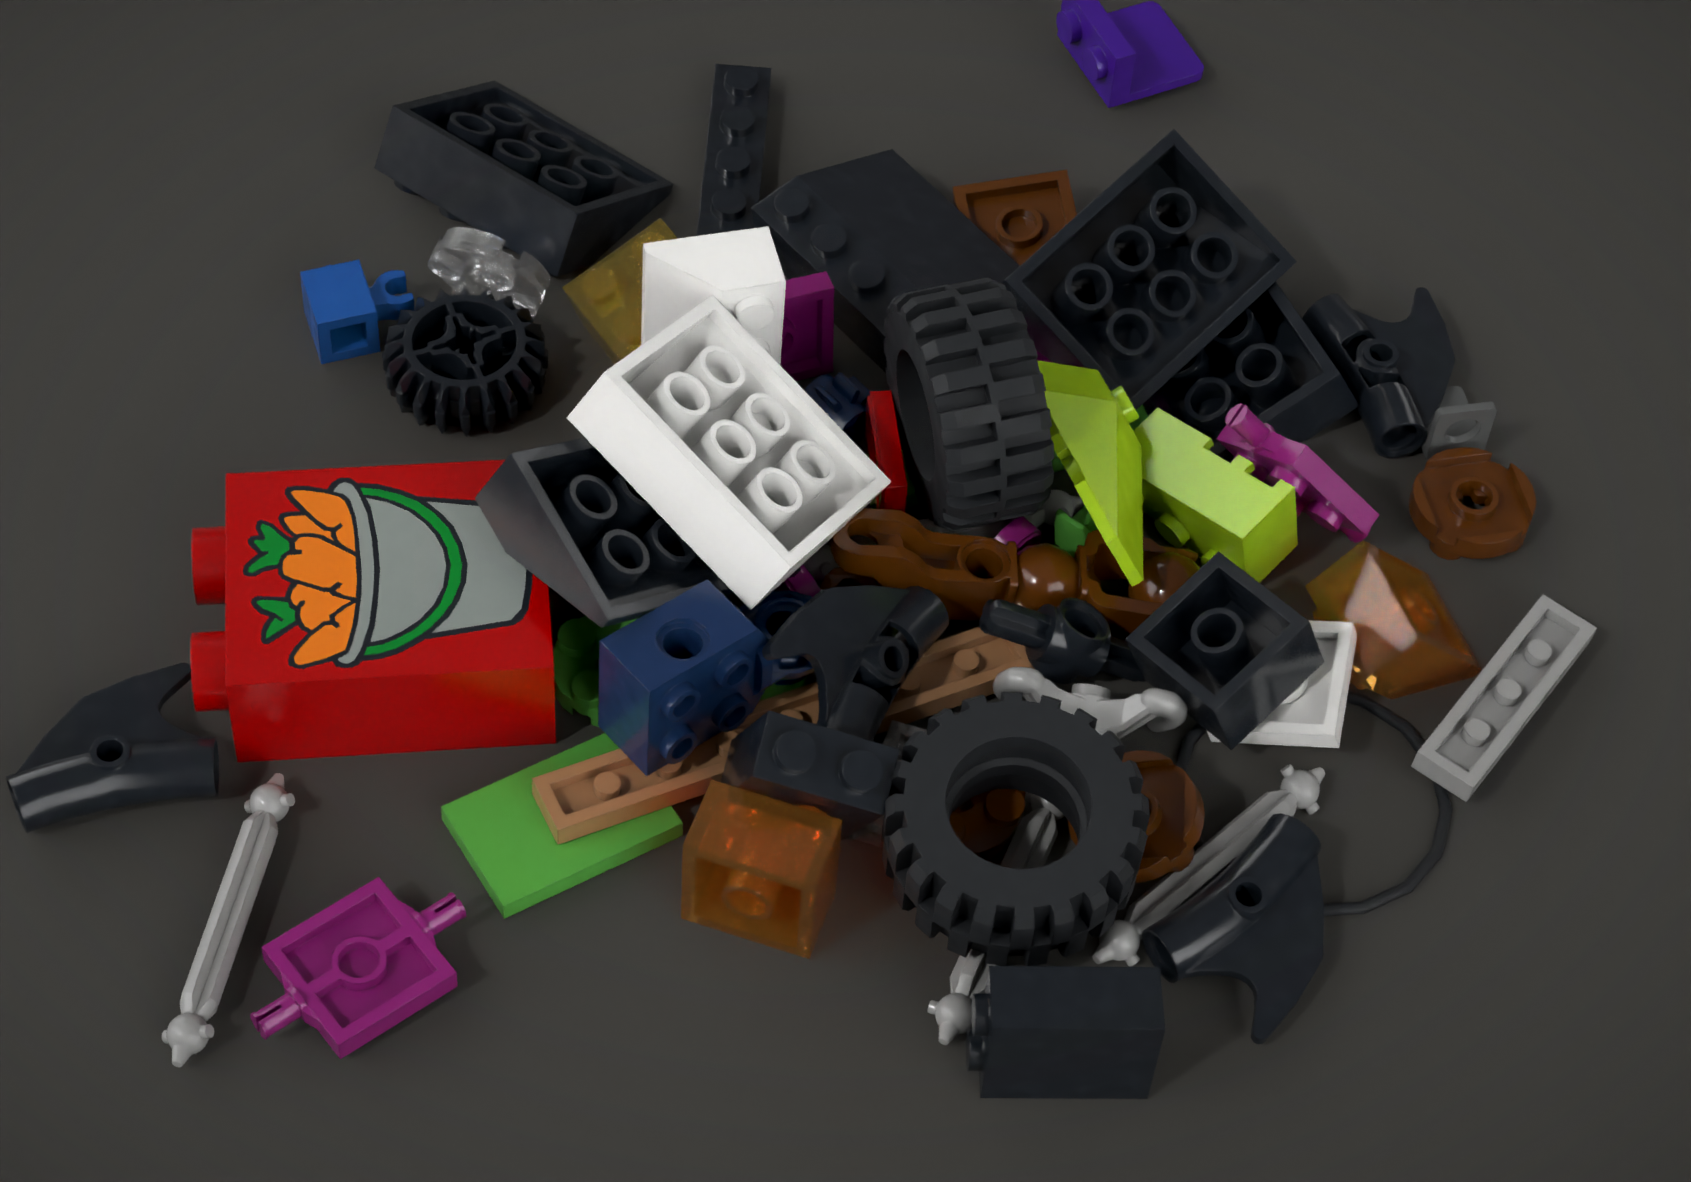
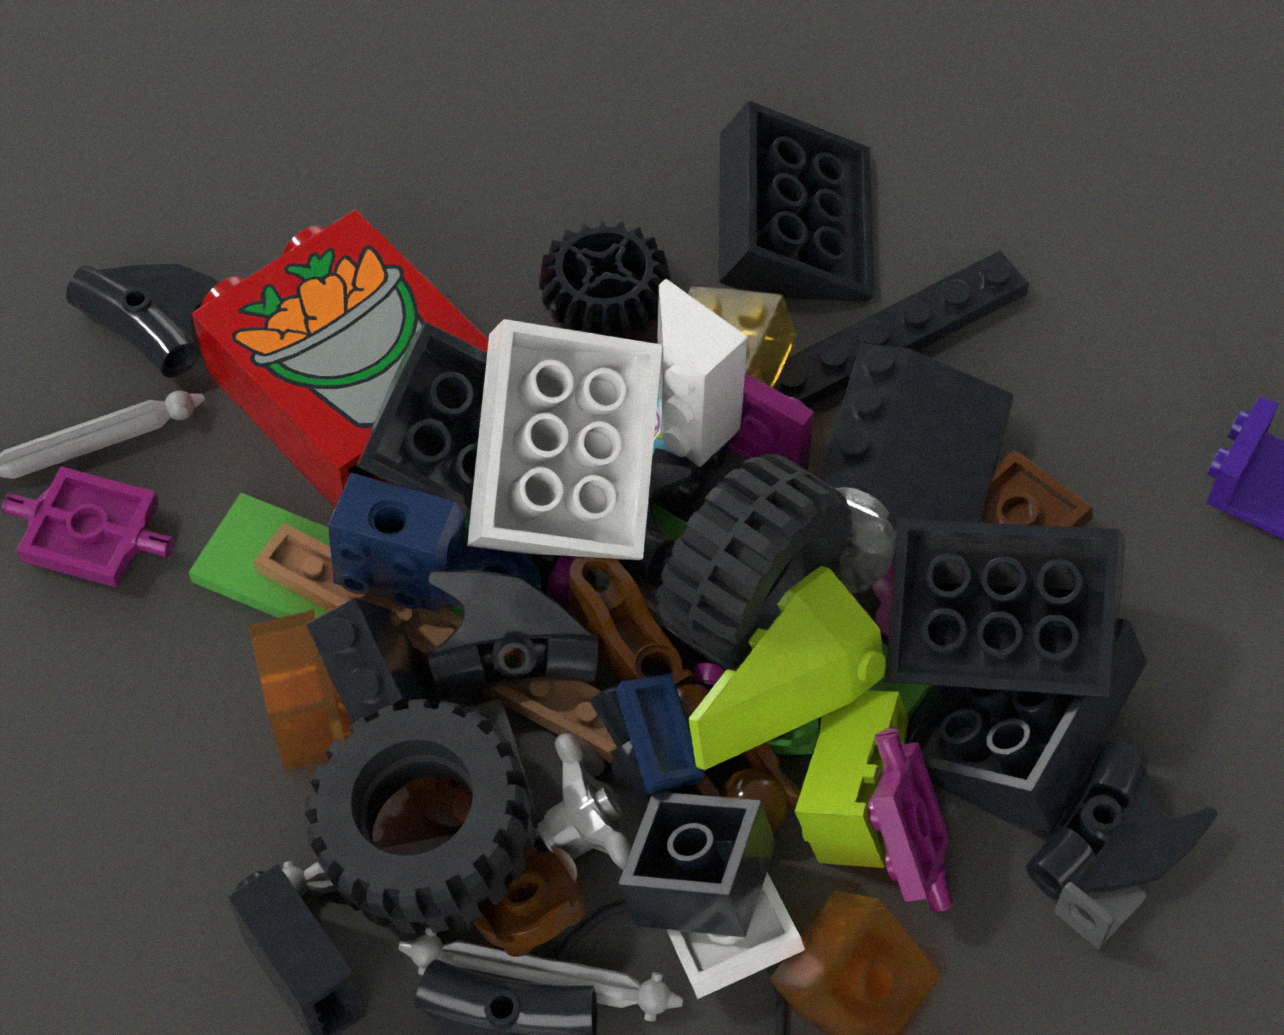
camera: 60 degrees right, 5 degrees up
(347, 312) = (592, 191): blue brick -> none
(478, 262) = (671, 241): clear plate -> none
(1070, 595) = (659, 732): none -> dark blue tile
(1468, 532) = (1031, 1001): reddish brown plate -> none

